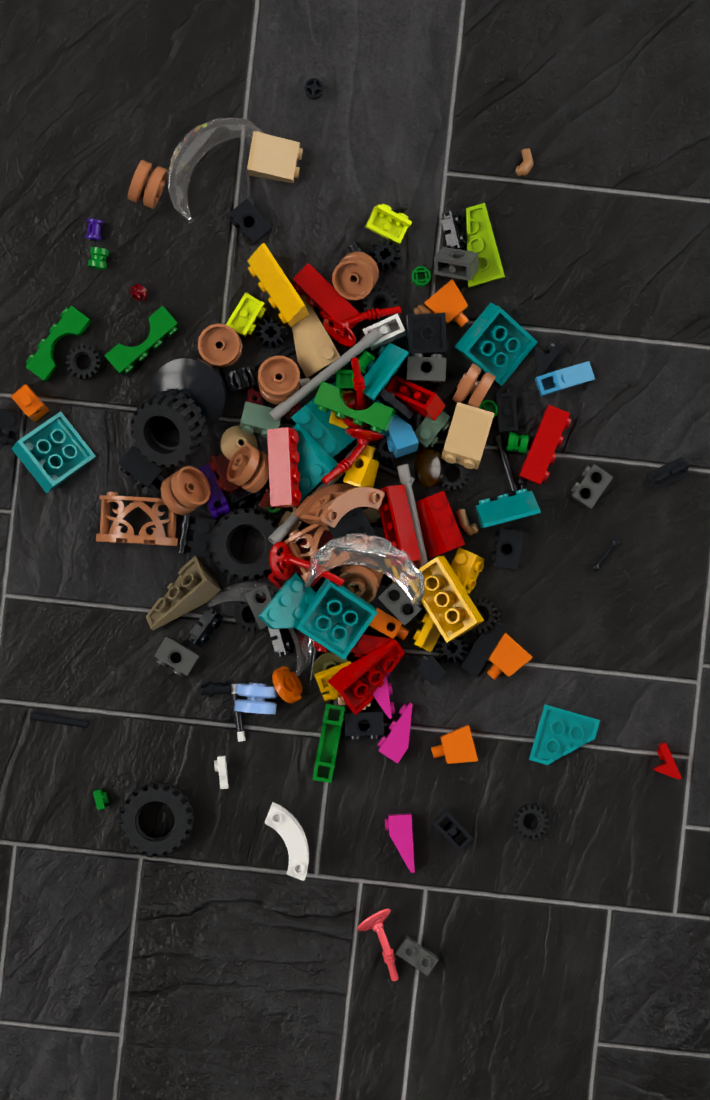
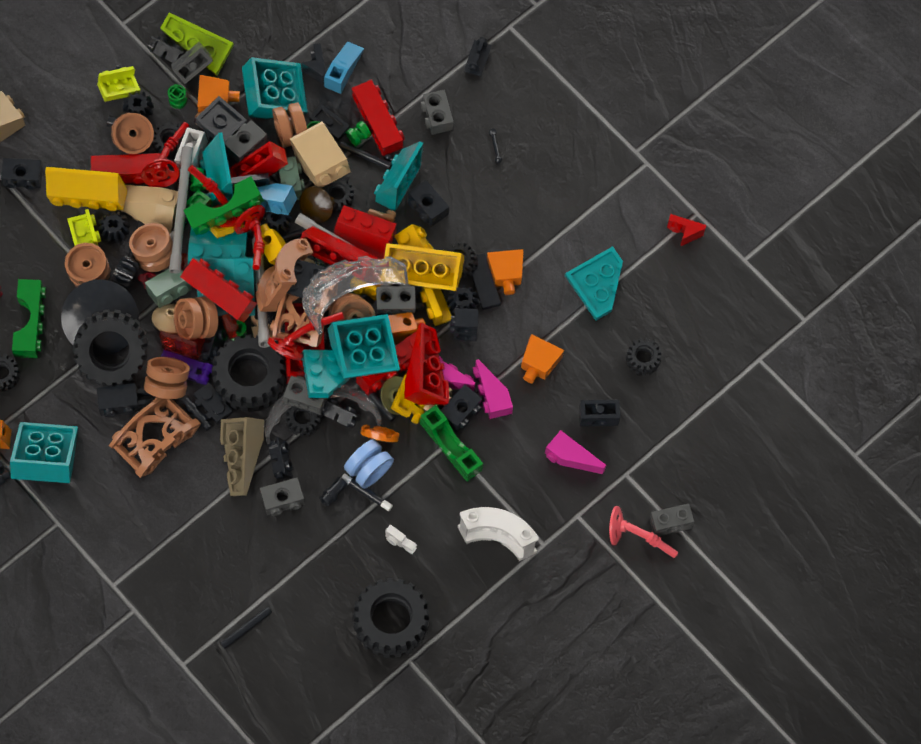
camera: 55 degrees left, 20 degrees down
(100, 799) = (335, 647): green plate -> none

